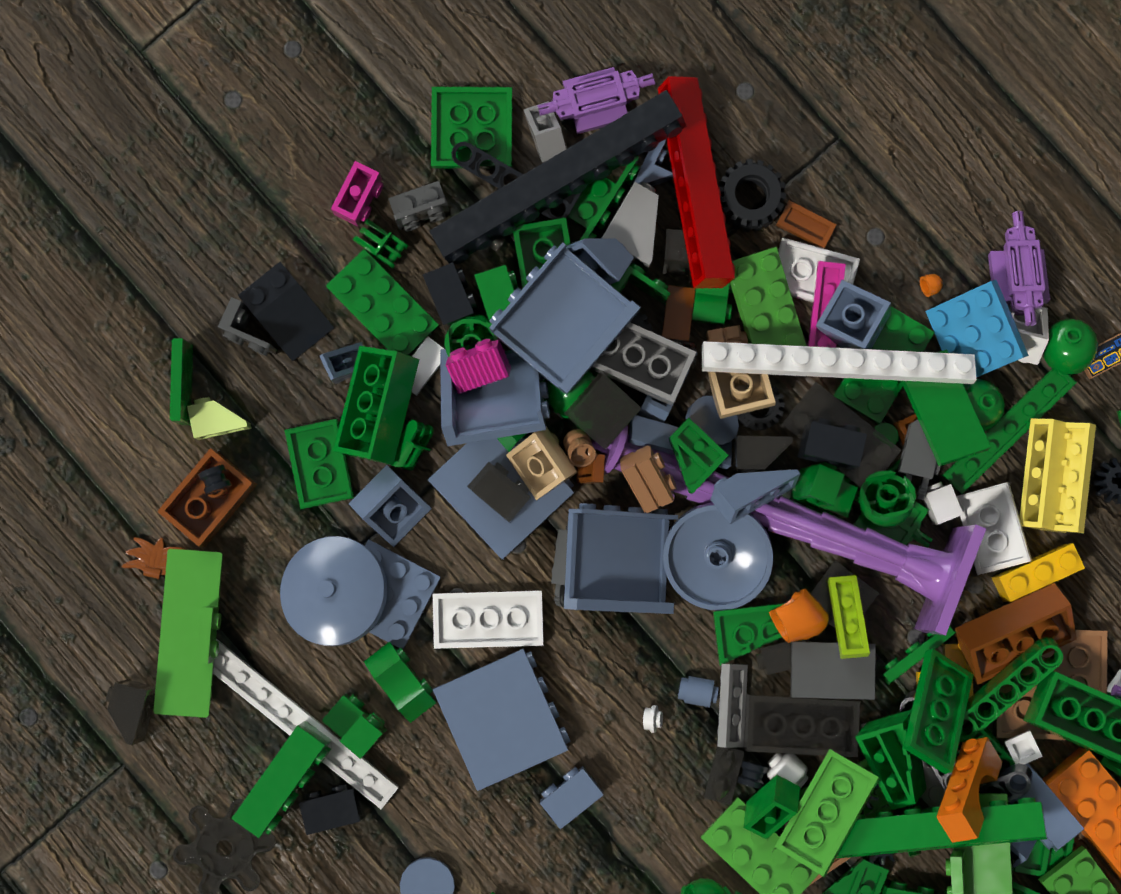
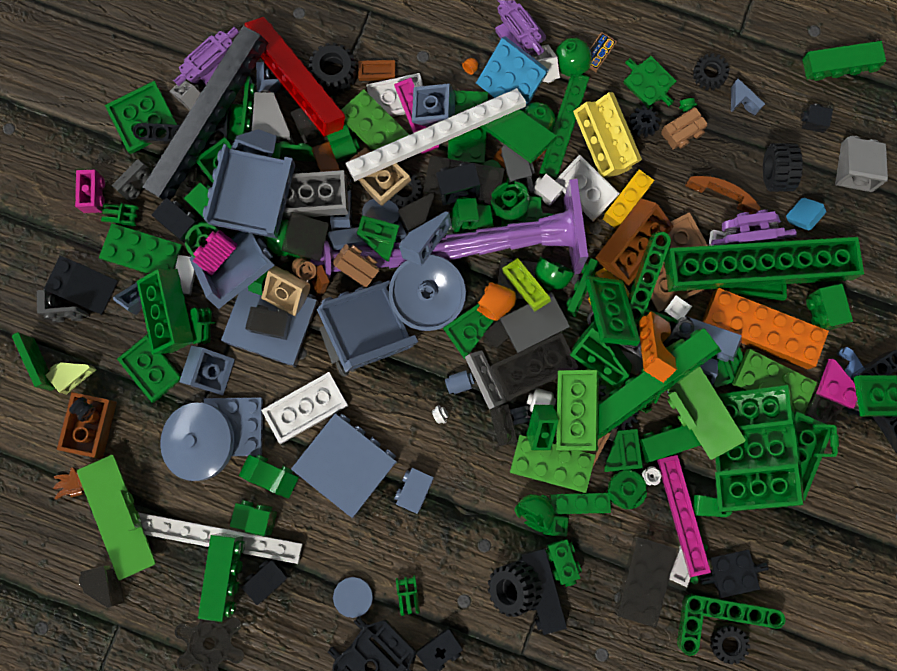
camera: 20 degrees left, 5 degrees down
(889, 618) = (553, 274): none -> green cylinder

